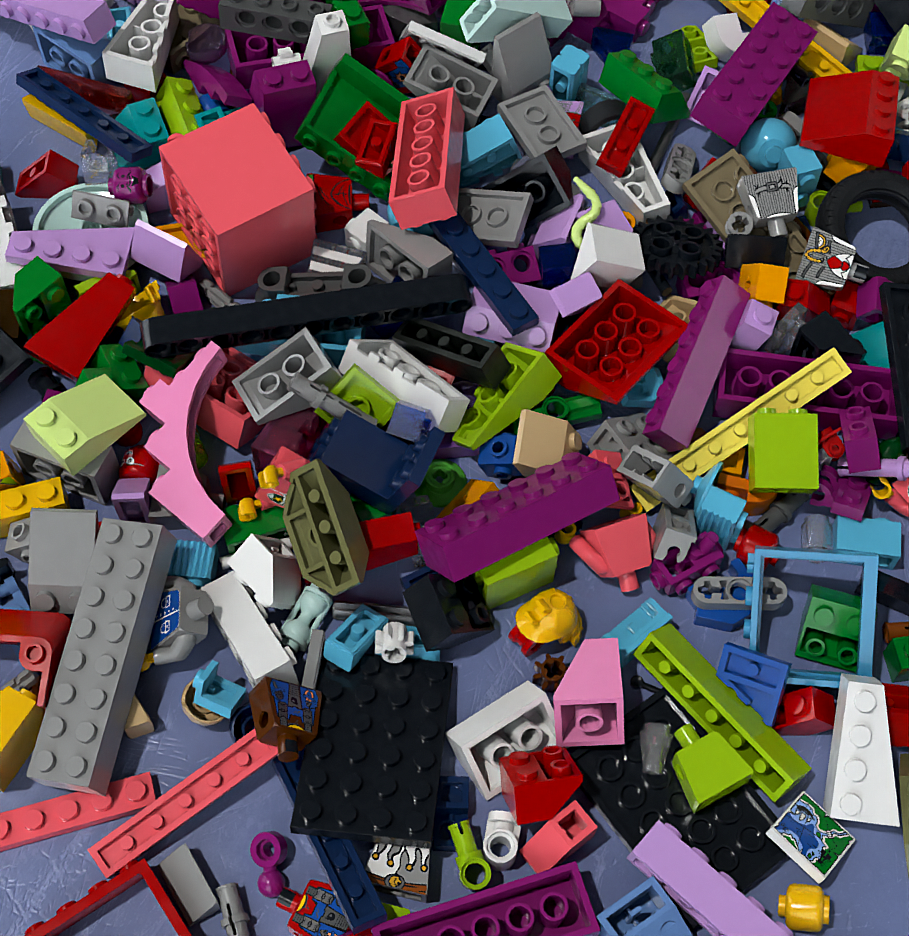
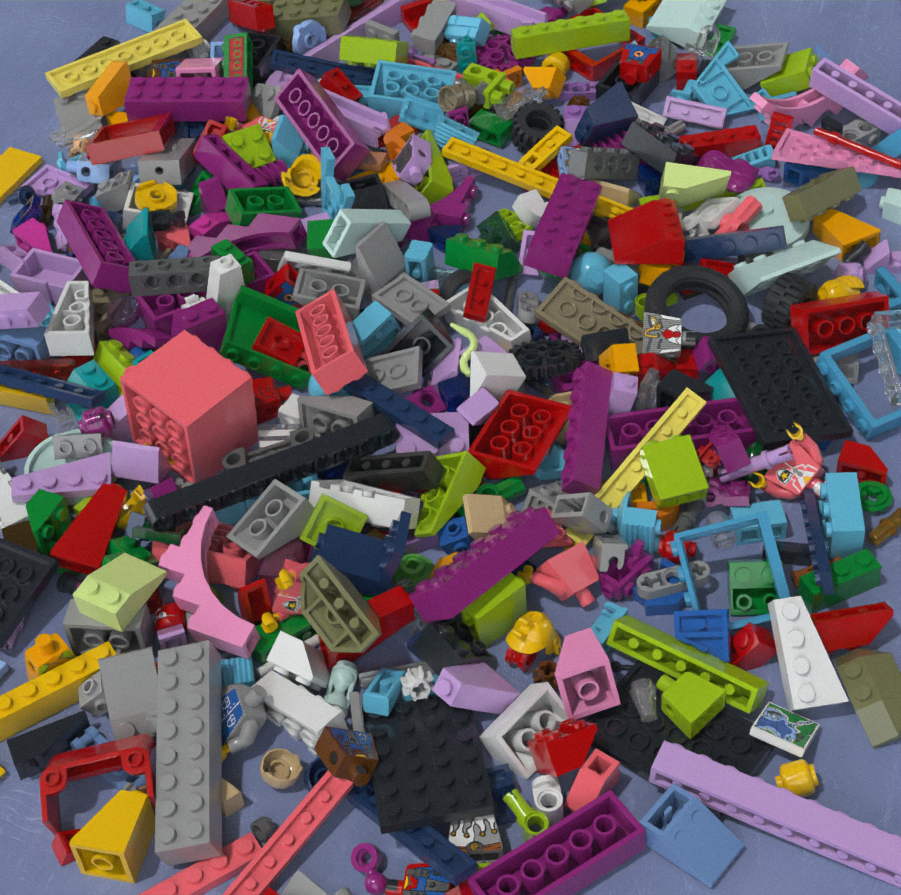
camera: 10 degrees left, 15 degrees down
(165, 771) = (262, 828): none -> dark grey hinge
(216, 692) = (287, 755): medium azure bracket -> none
(324, 399) = (300, 522): light grey pin -> none
(377, 147) = (287, 346): red slope -> none
(409, 421) = (377, 522): clear blue brick -> none
(460, 670) = (475, 688): none -> lavender slope
(743, 217) = (586, 322): light grey bush -> none
(770, 199) = (604, 303): light grey torso -> none

